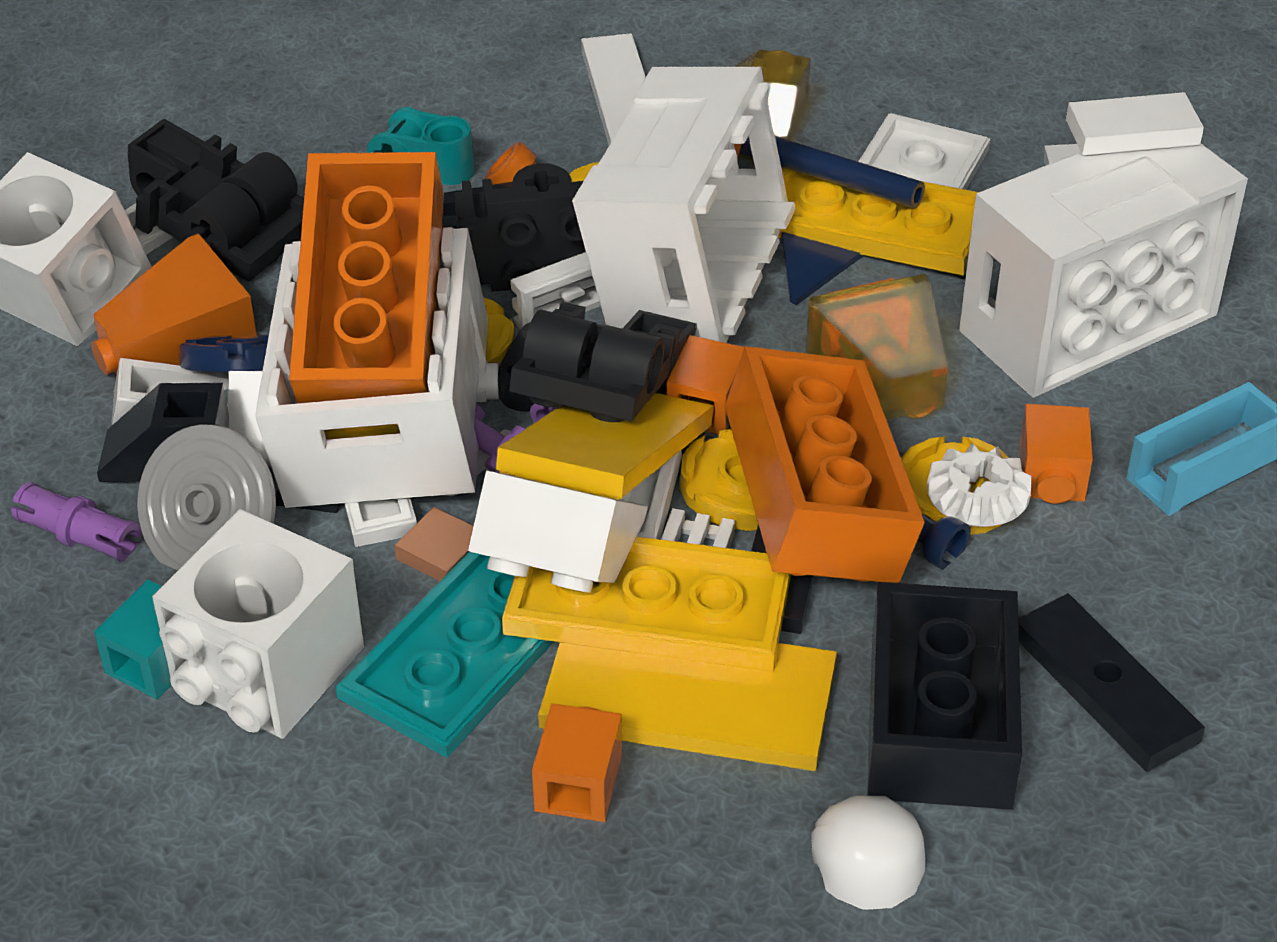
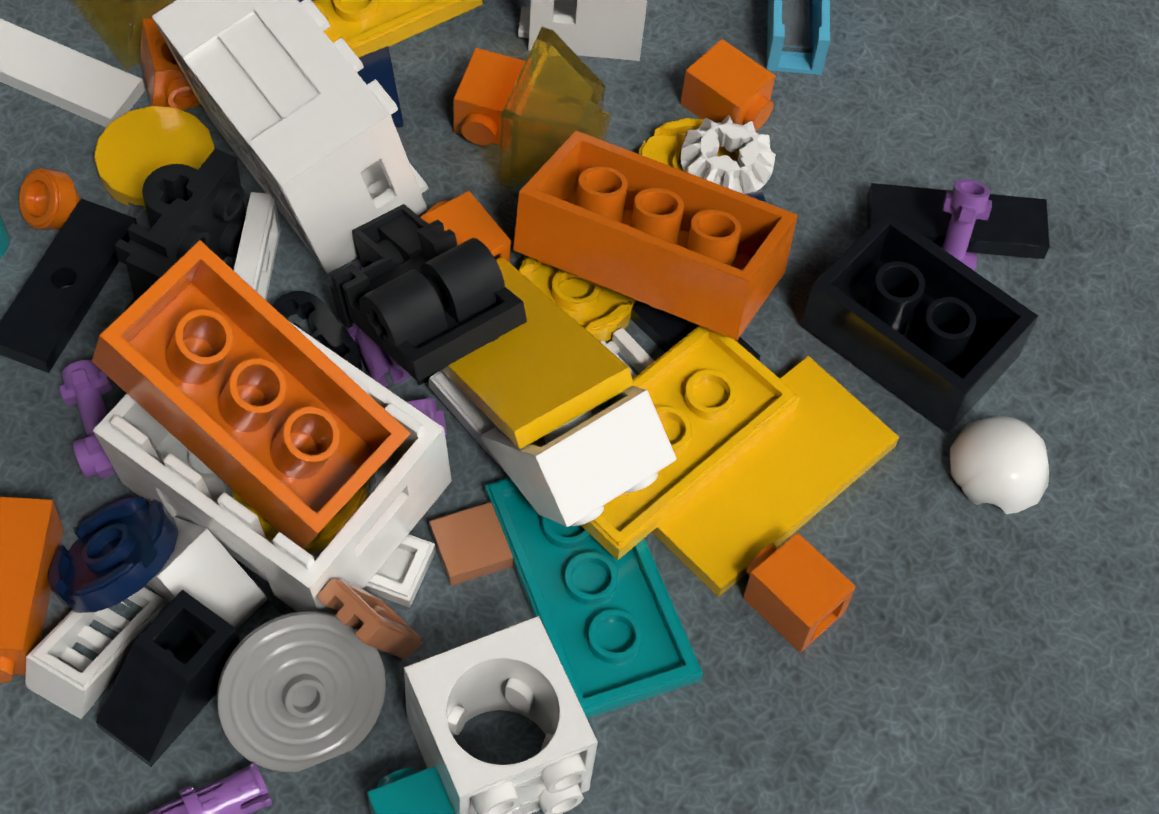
camera: 60 degrees left, 15 degrees up
(293, 493) = (377, 621): none -> nougat tile
(1052, 694) = (966, 204): none -> medium lavender bar

